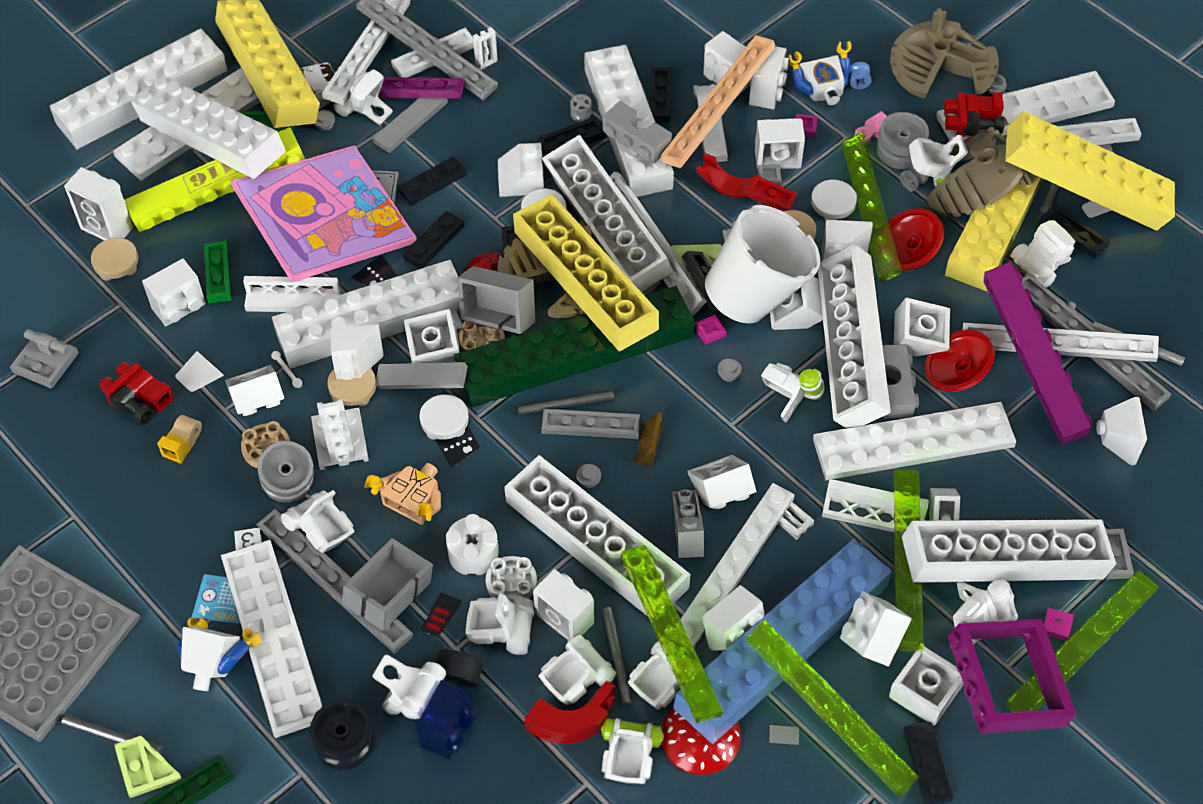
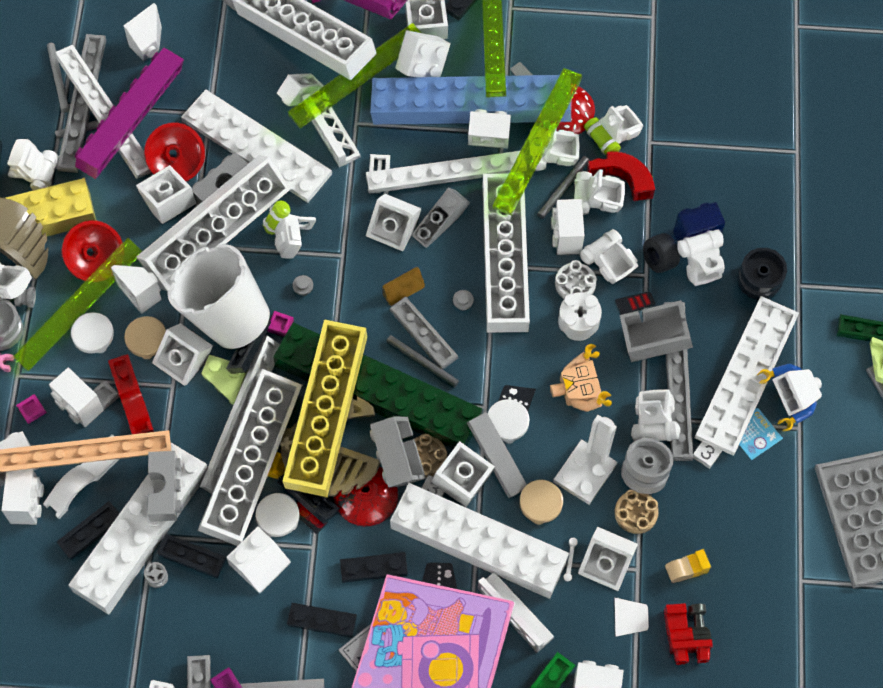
camera: 135 degrees left, 10 degrees up
(355, 350) = (527, 502): white slope -> none
(986, 605) = (362, 21): white piece -> none

